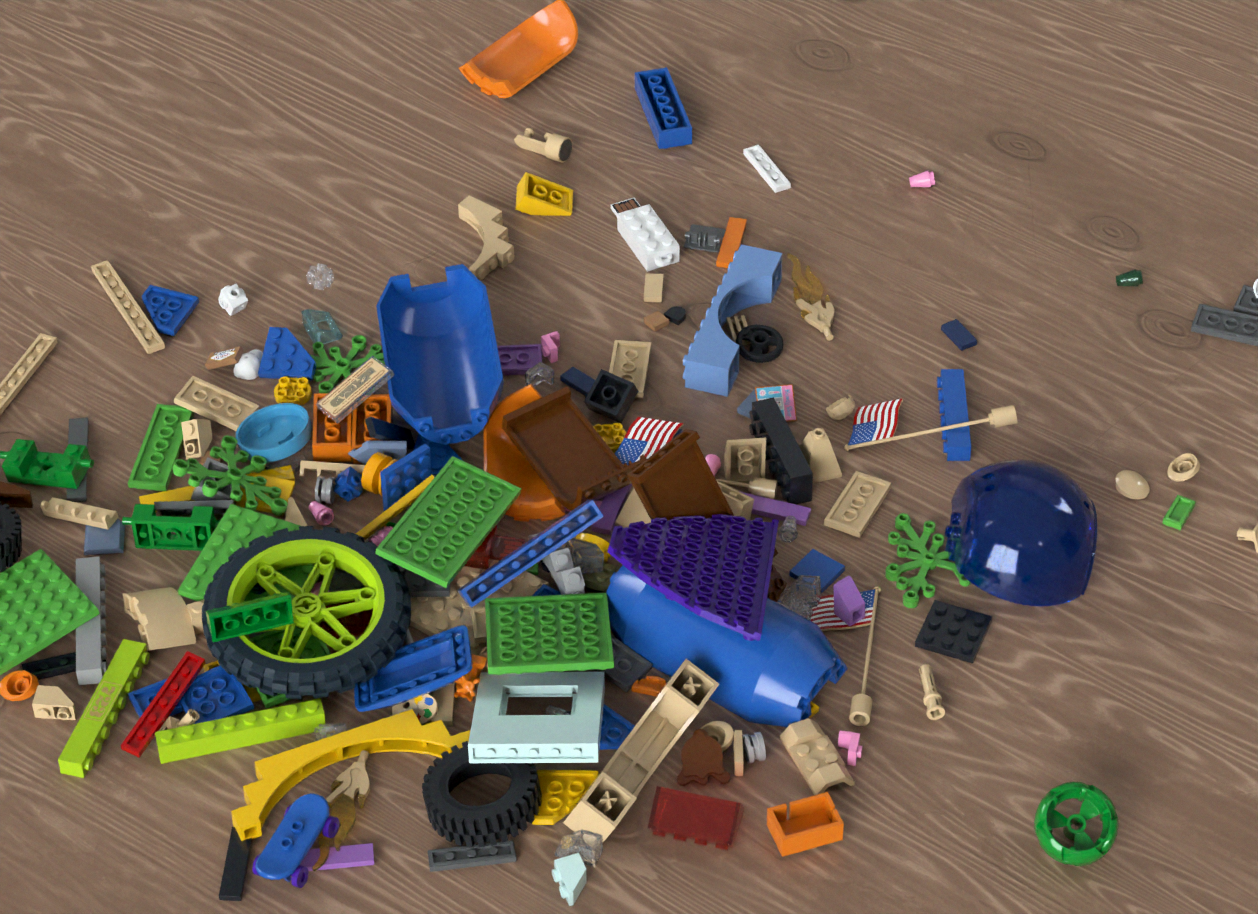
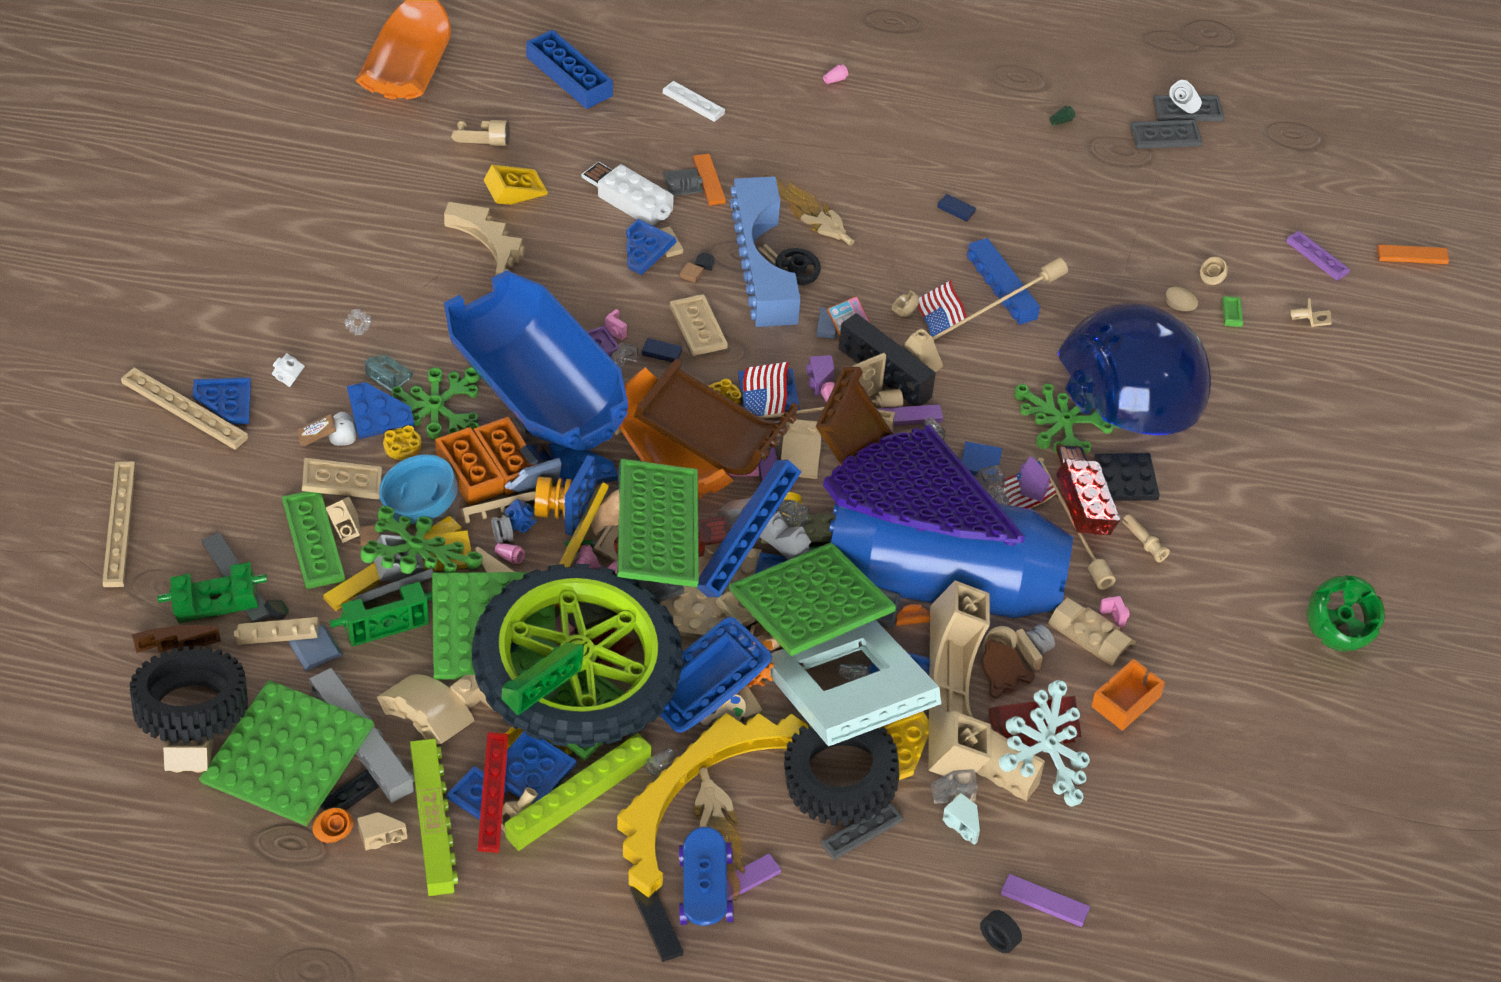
camera: 30 degrees left, 5 degrees up
(92, 495) = (276, 608): none -> black tile
(355, 389) = (481, 423): tile -> none
(611, 396) = (706, 355): black brick -> none
(627, 284) = (646, 245): none -> blue plate
(642, 846) = (1013, 780): none -> tan slope
(701, 816) = (1048, 743): none -> light aqua plant
(714, 441) = (820, 371): none -> medium lavender slope
(857, 504) = (975, 388): tan plate -> none
(895, 629) = (1086, 492): none -> clear red piece

